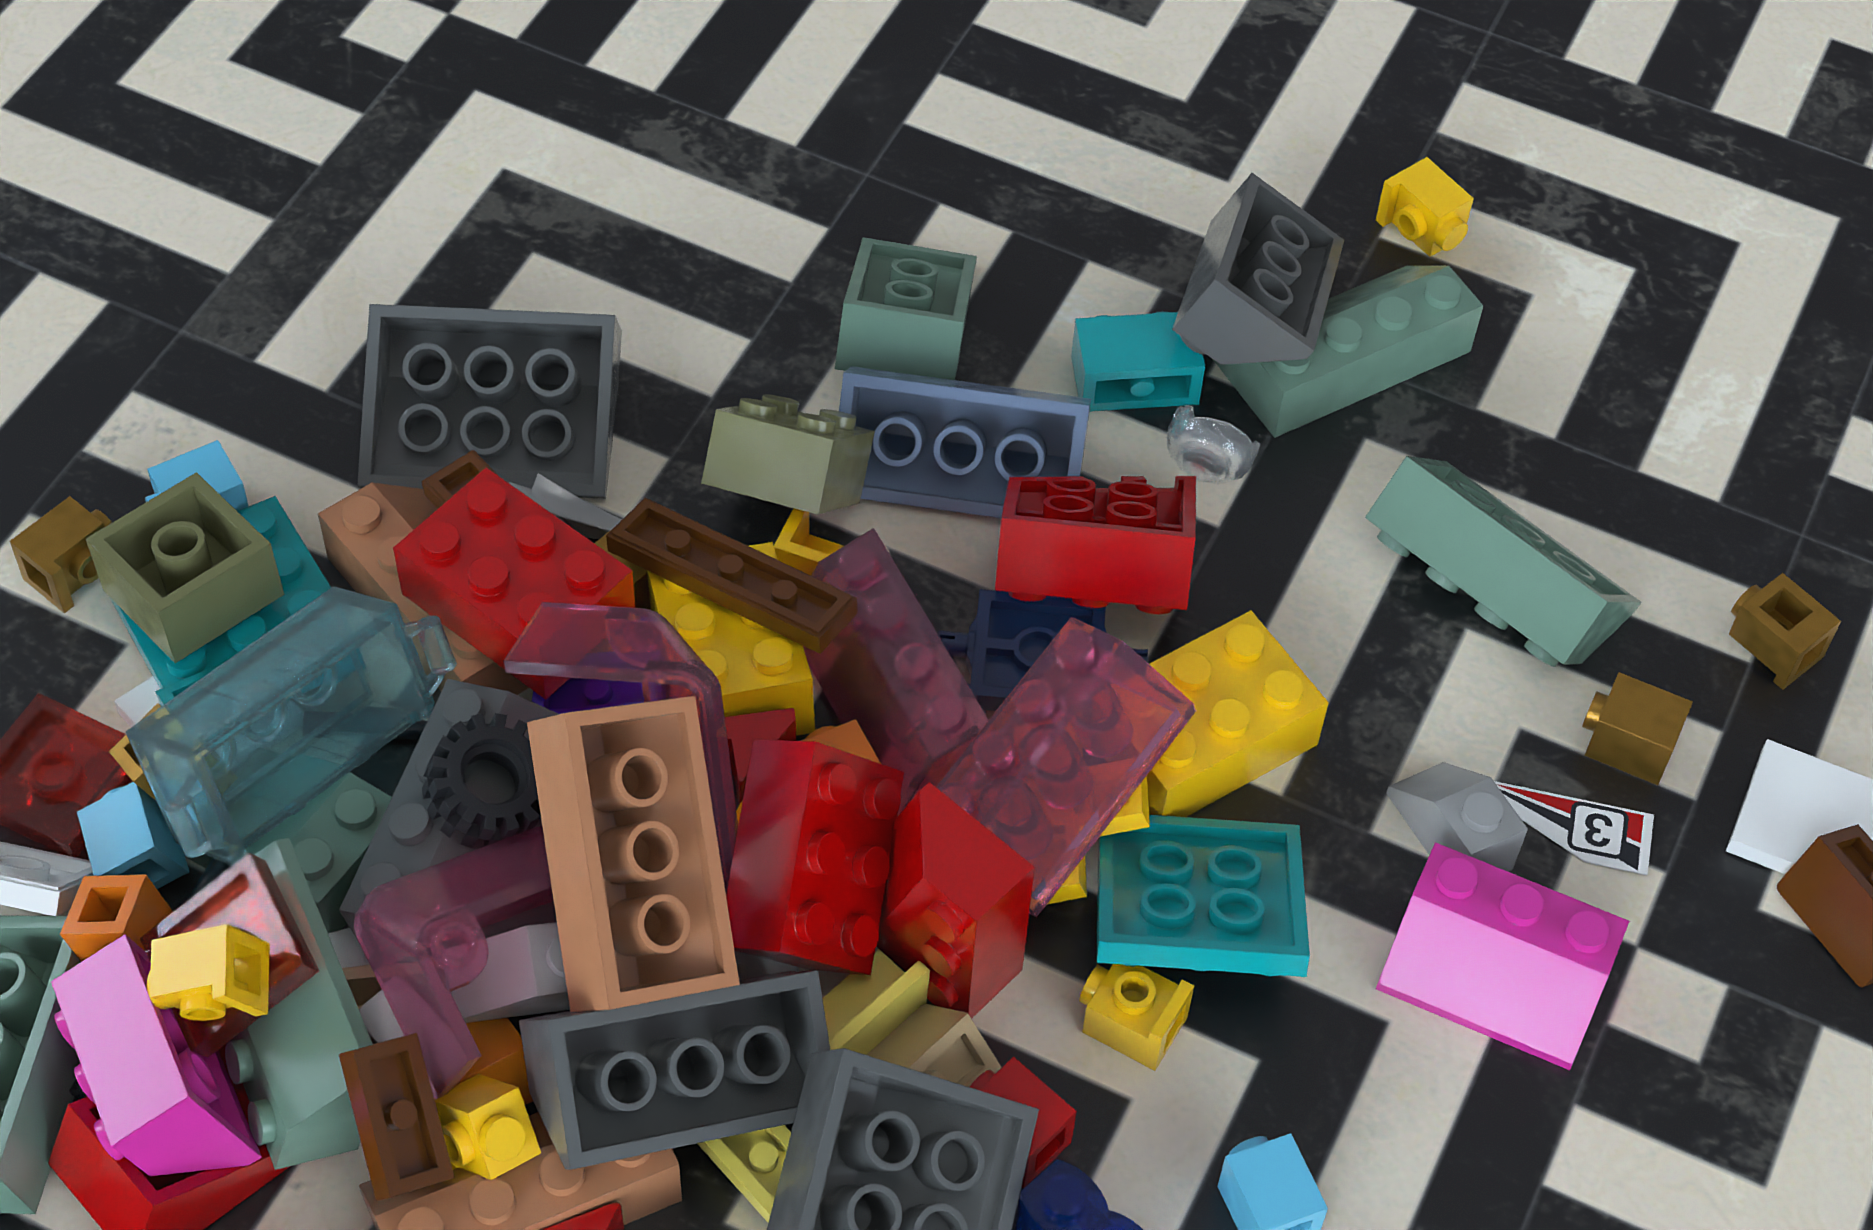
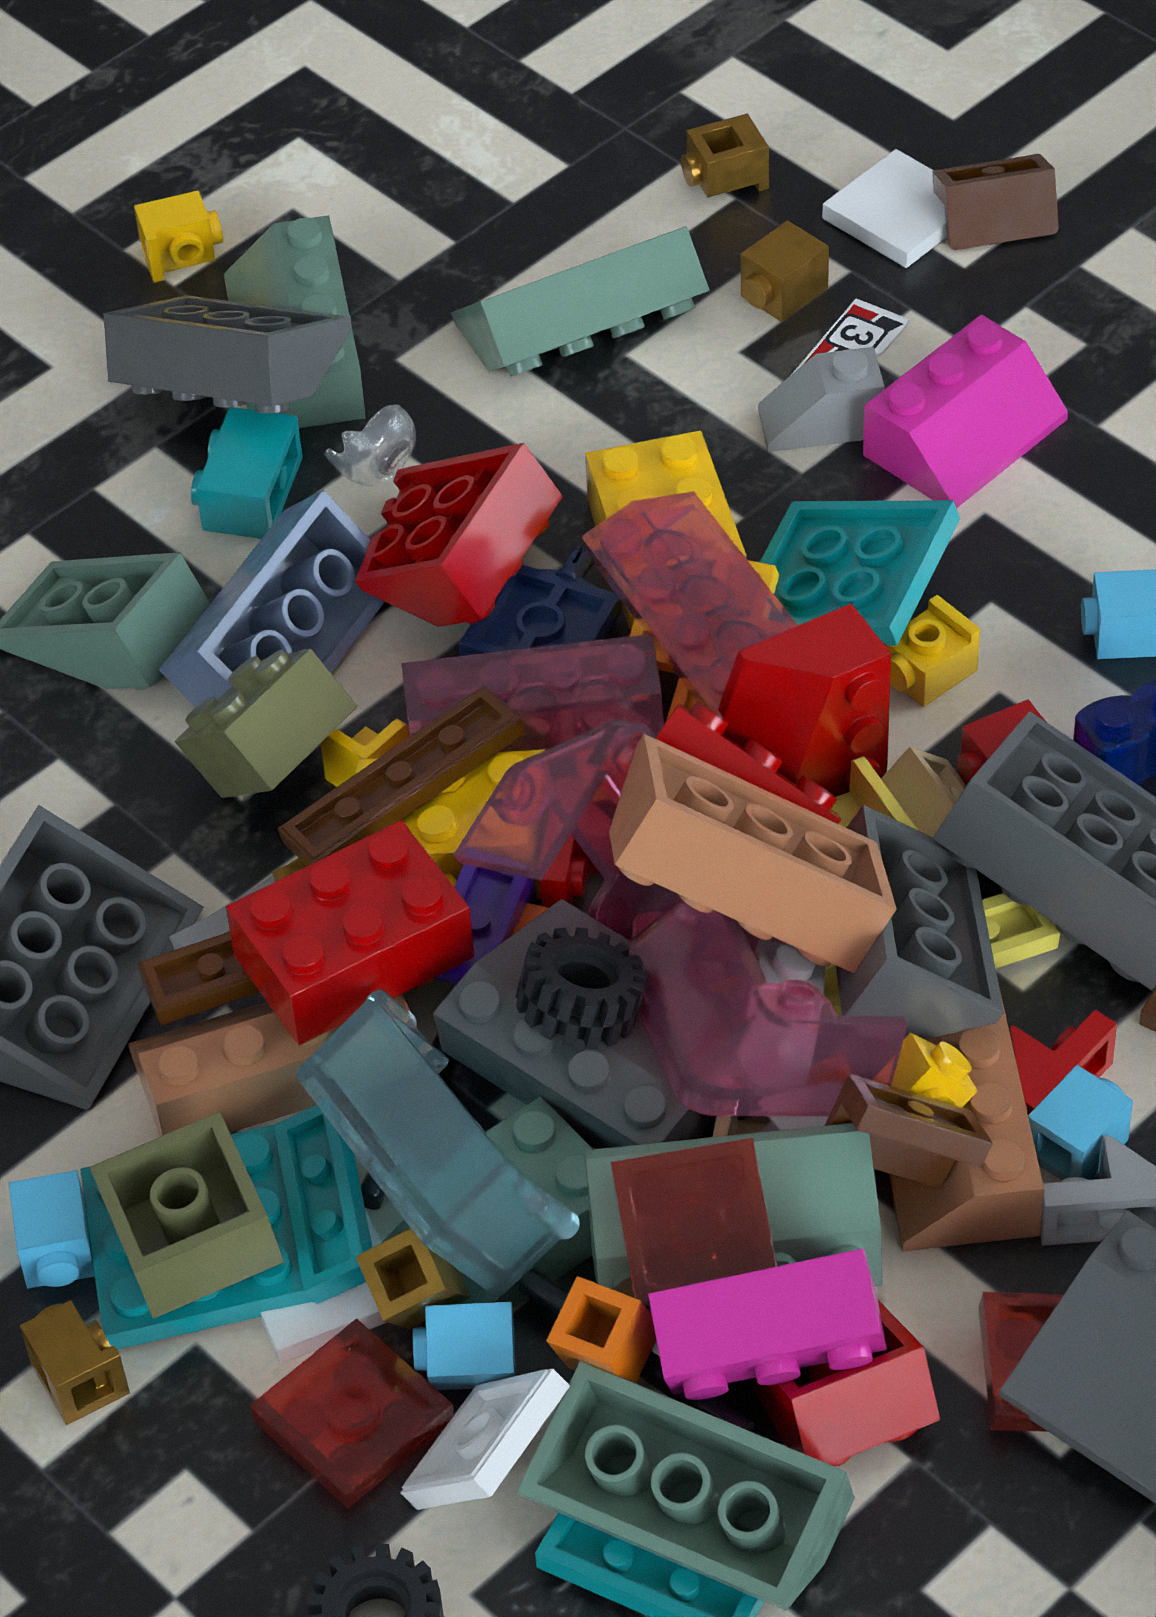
camera: 65 degrees left, 5 degrees down
(210, 972) = (736, 1215): yellow brick -> none

